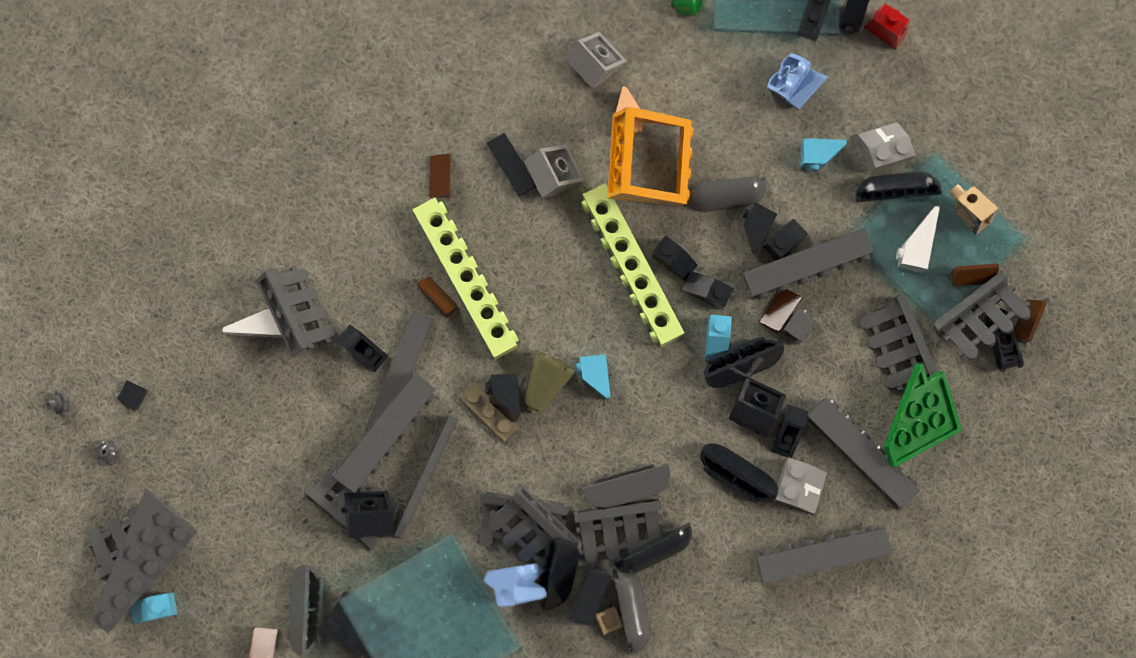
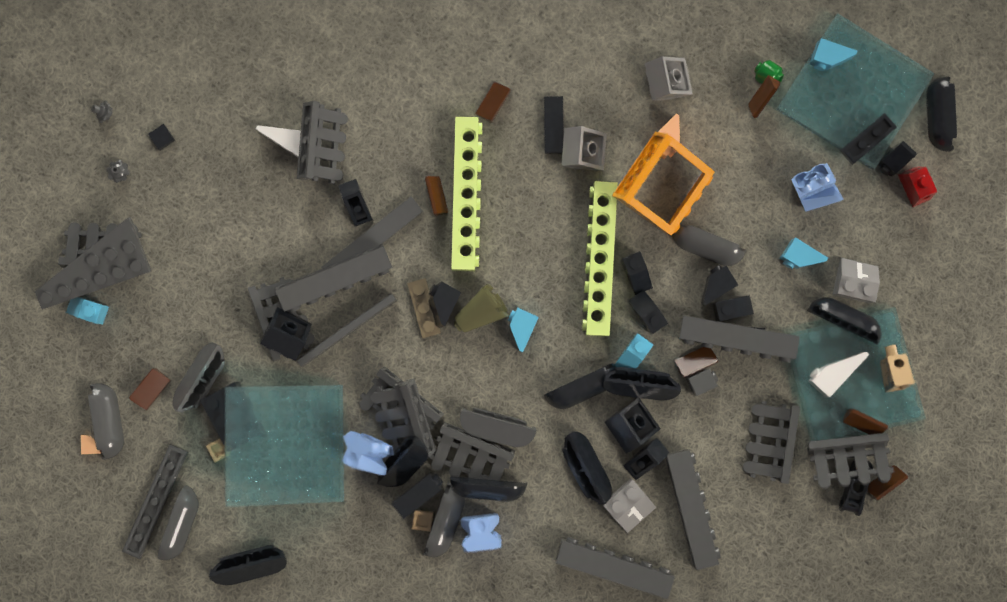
camera: 35 degrees right, 5 degrees up
(673, 597) = (480, 532): none -> light blue piece
(686, 402) = (579, 389): none -> black brick
(694, 24) = (763, 95): none -> reddish brown slope
(923, 417) = (756, 510): green wing -> none

